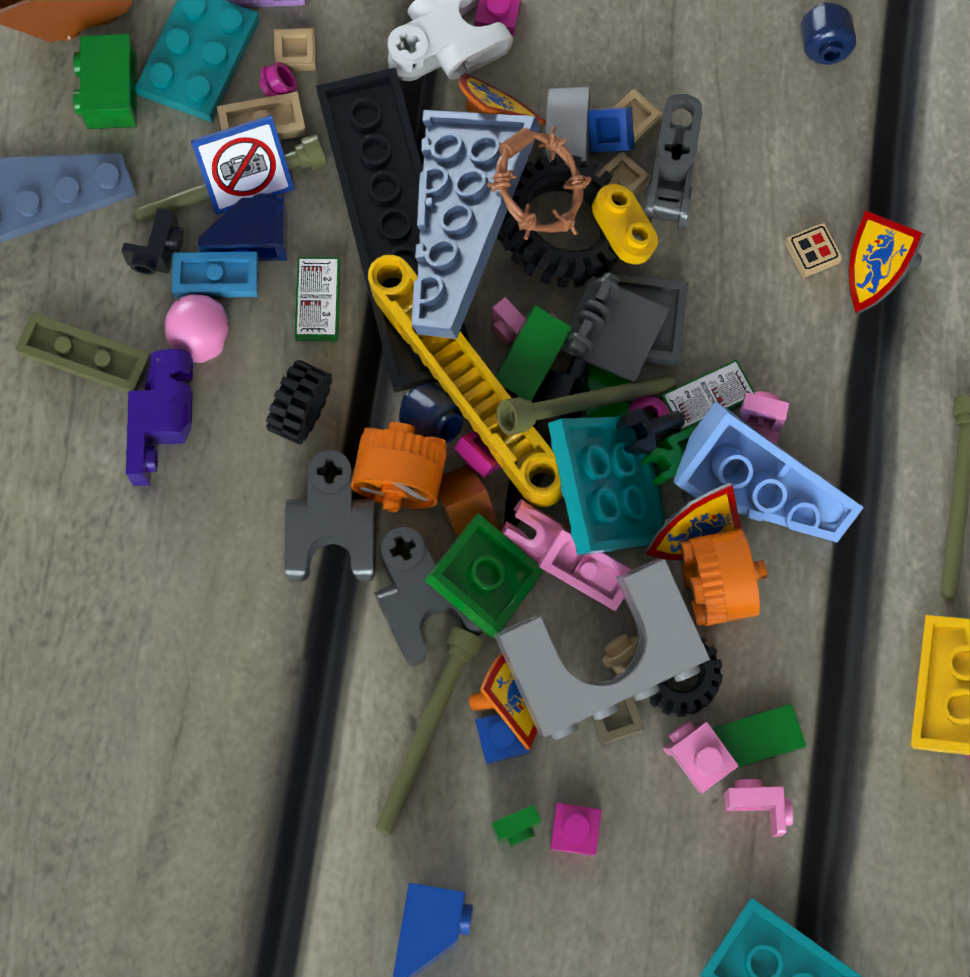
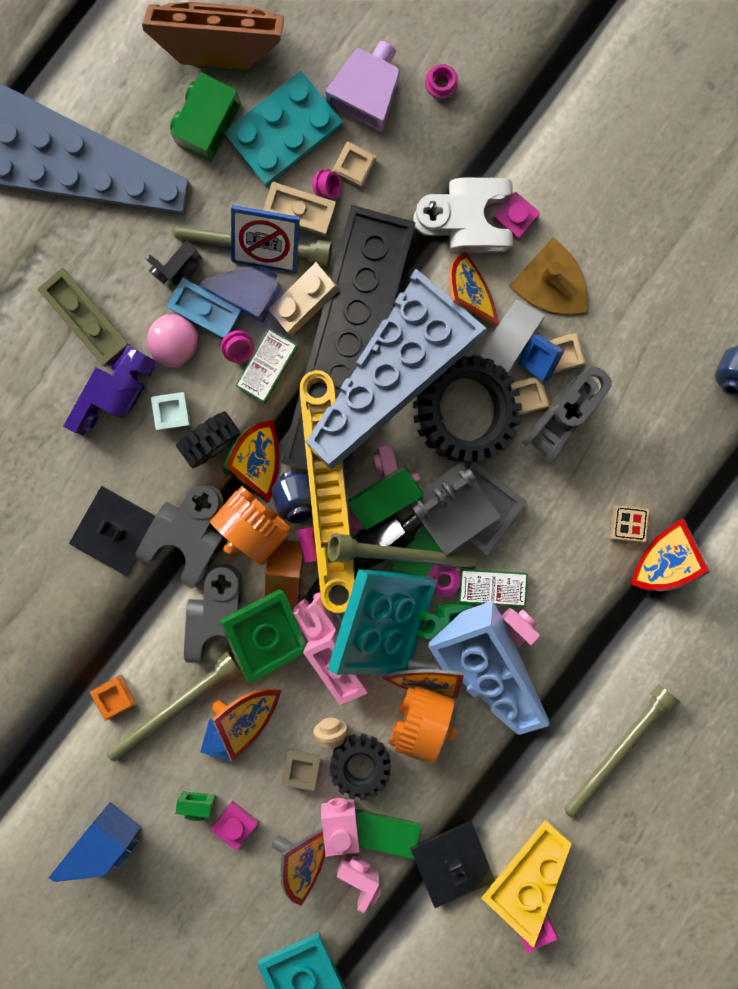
camera: 30 degrees right, 15 degrees up
(237, 401) = (171, 411): none -> light aqua plate
(242, 571) = (112, 530): none -> black piece
(274, 294) = (237, 347): none -> dark pink plate
(320, 205) = (304, 299): none -> tan plate
(347, 760) = (113, 697): none -> orange tile
(359, 397) = (255, 459): none -> shield
(575, 183) = (430, 369): nougat piece -> none
(577, 54) = (553, 281): none -> pearl gold shield
(622, 221) = (503, 438): yellow plate -> none
(647, 428) = (433, 595): black bar -> none
(665, 649) = (267, 752): light grey arch -> none
(681, 822) = (300, 865): none -> shield
(854, 728) = (452, 864): none -> black piece

